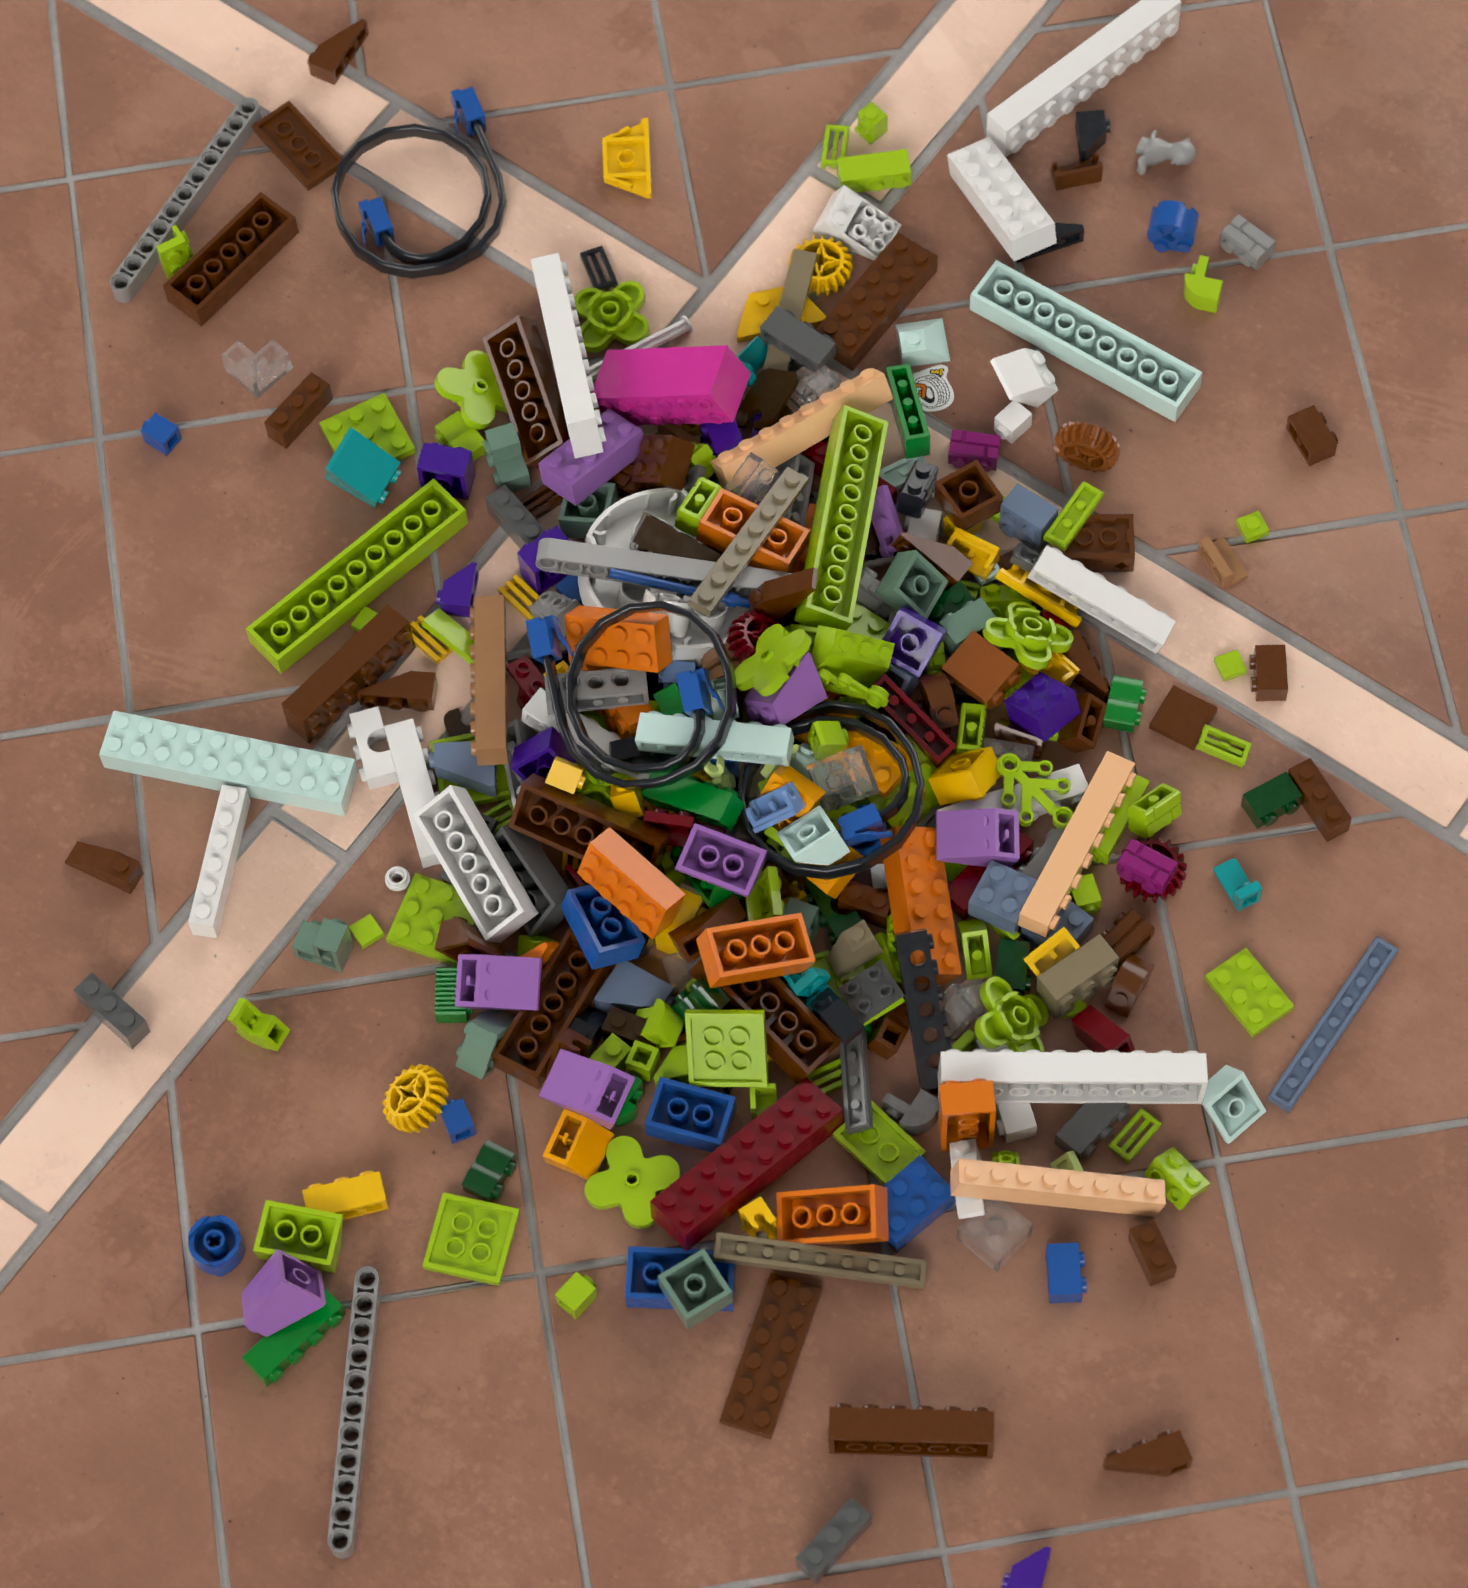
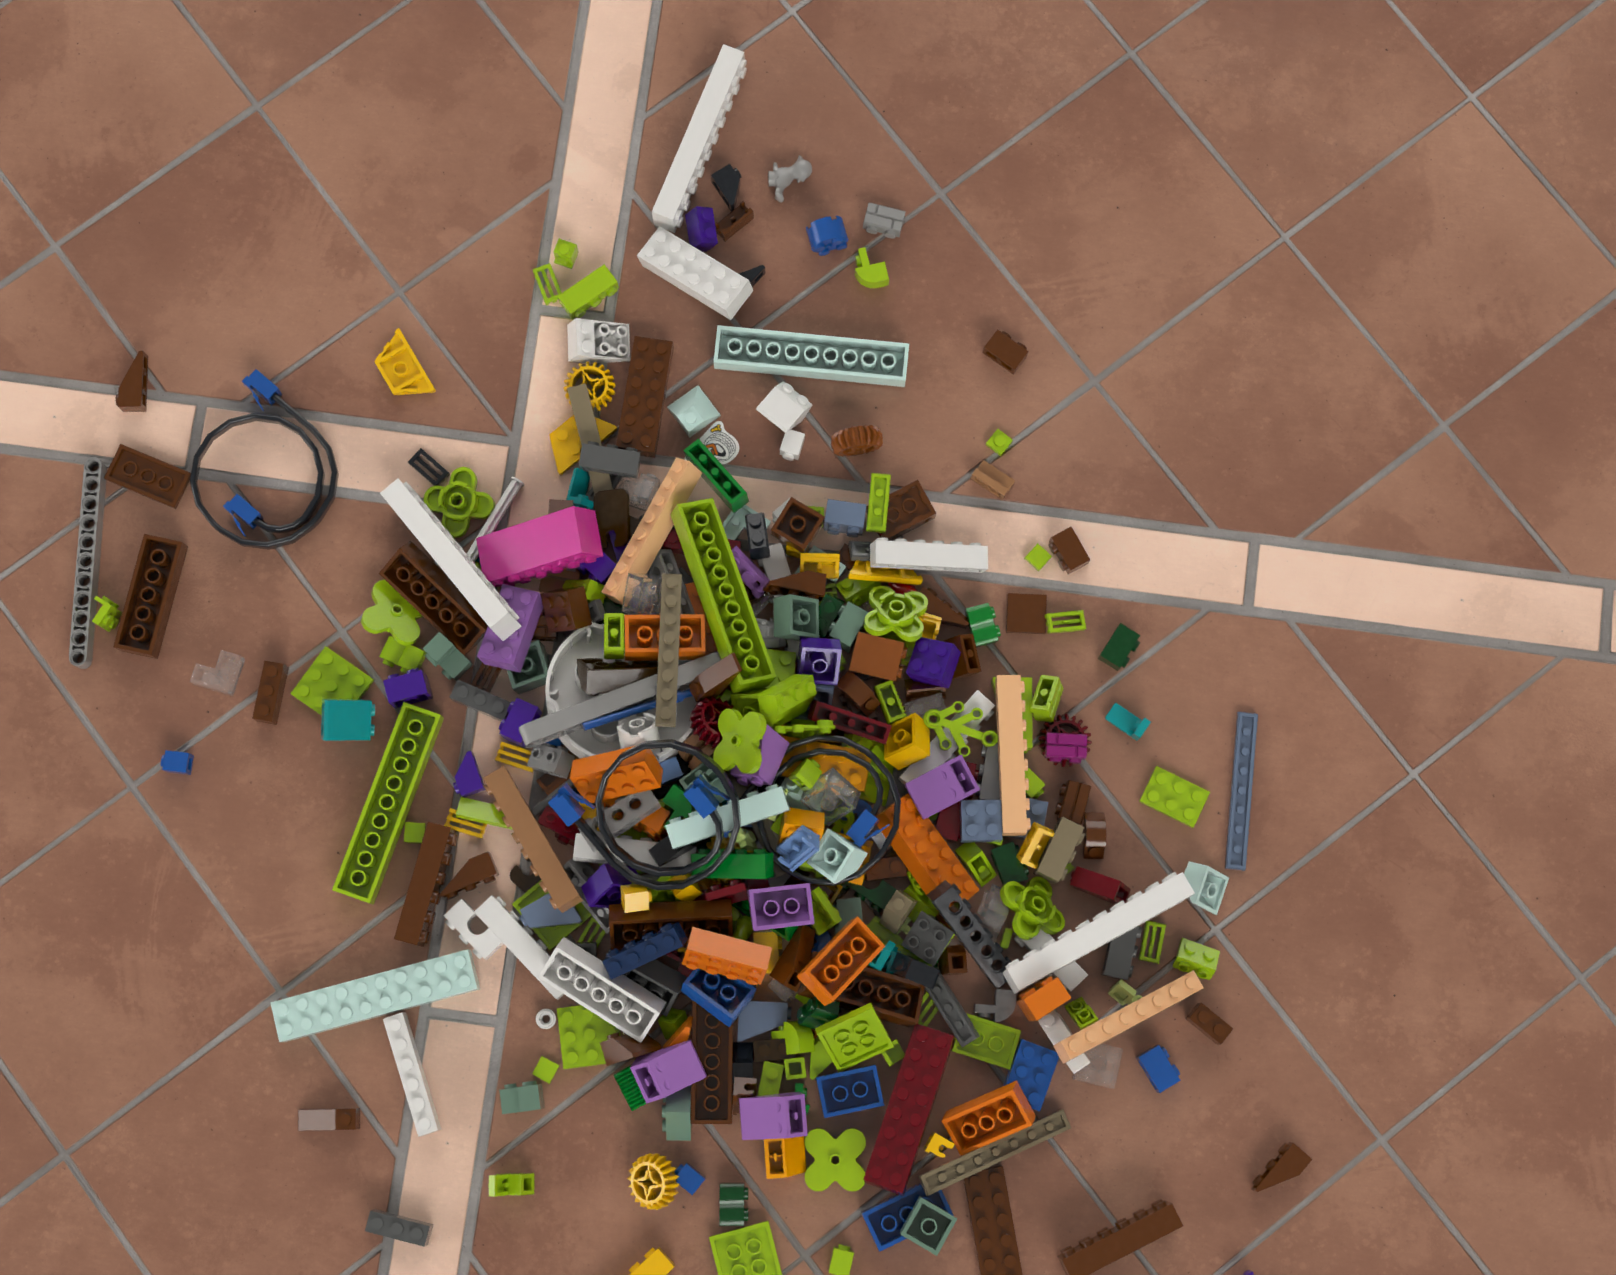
camera: 35 degrees left, 15 degrees up
(543, 833) = (645, 950): none -> dark blue brick
(973, 446) = (777, 480): magenta brick -> none
(1036, 160) = (701, 228): none -> dark purple brick
(1320, 800) = (1152, 631): reddish brown brick -> none

